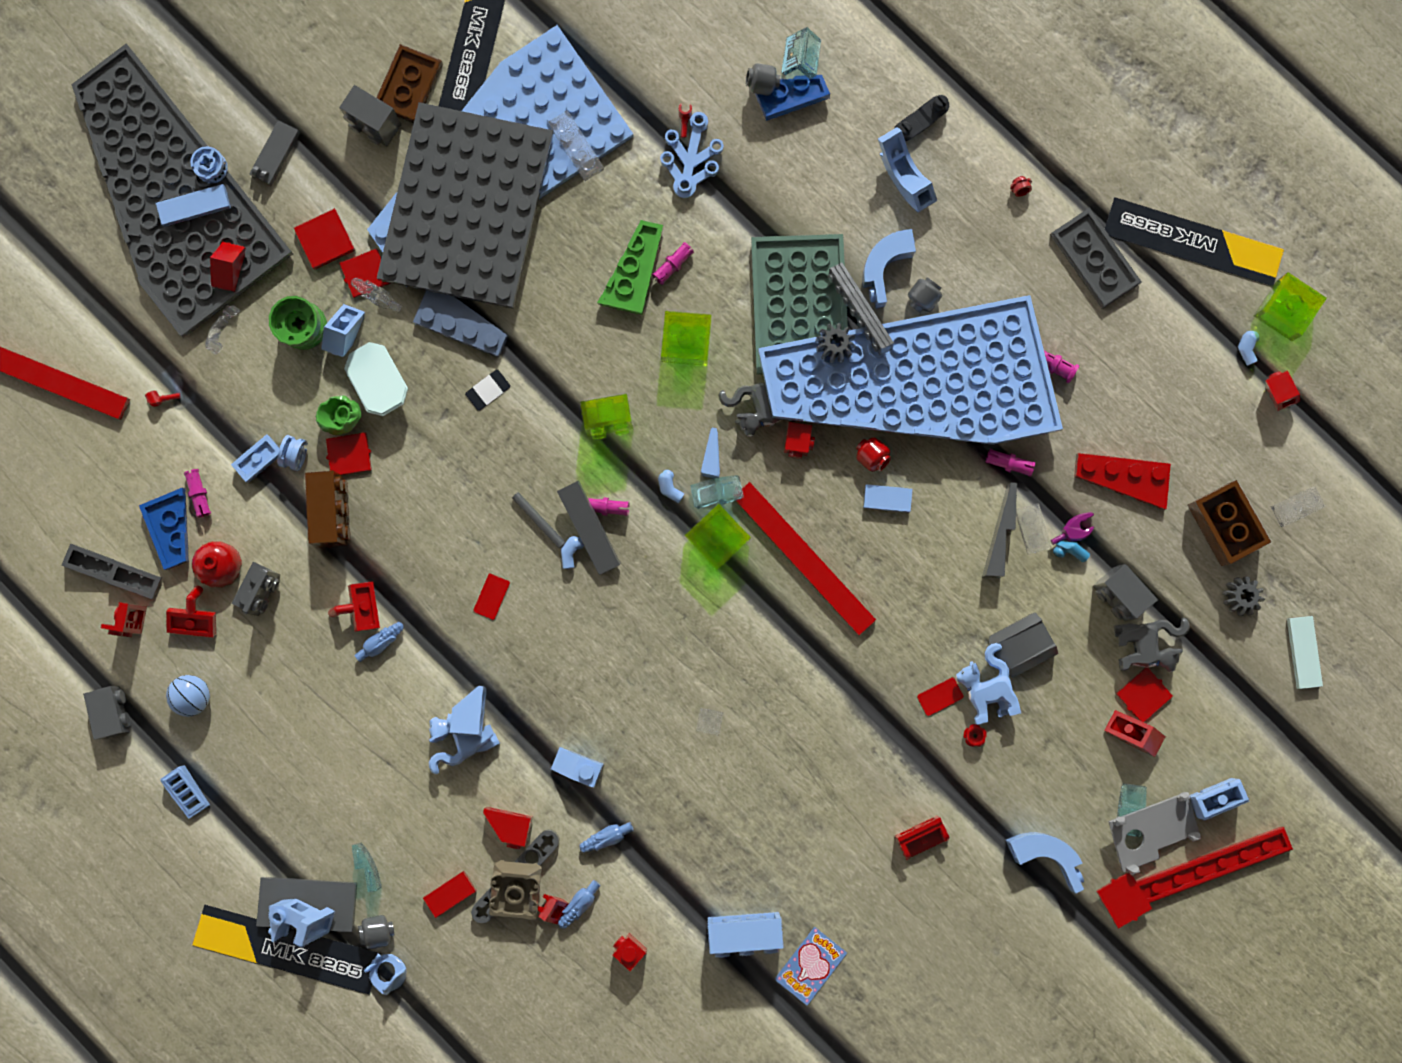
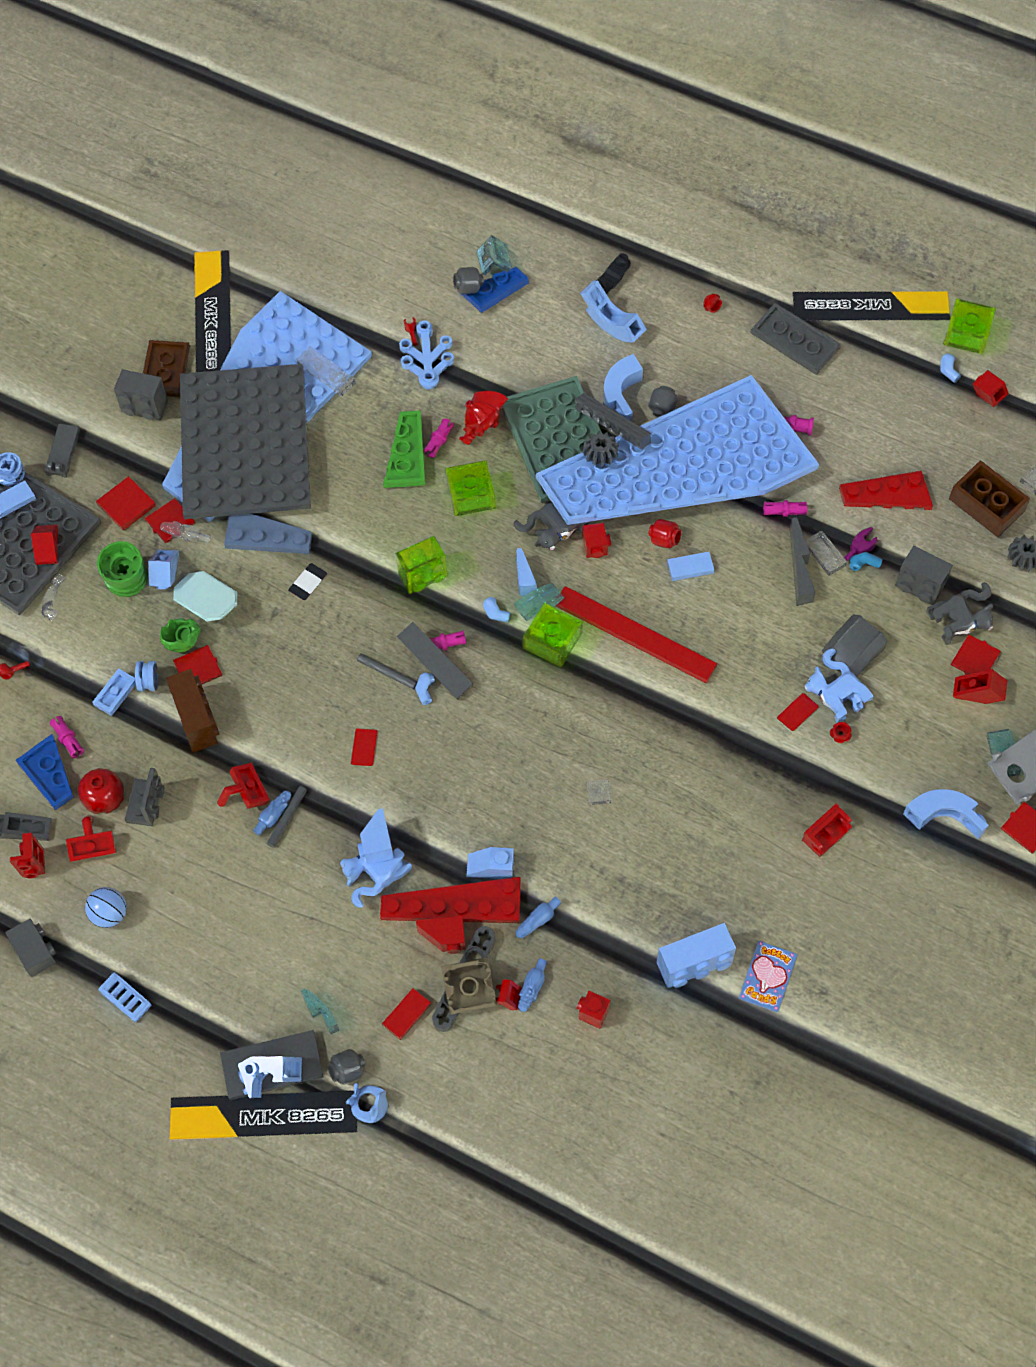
camera: 15 degrees left, 20 degrees down
(392, 649) = (286, 817): none -> dark grey bar
(547, 799) = (477, 902): none -> red wing
(725, 254) = (482, 414): none -> red helmet

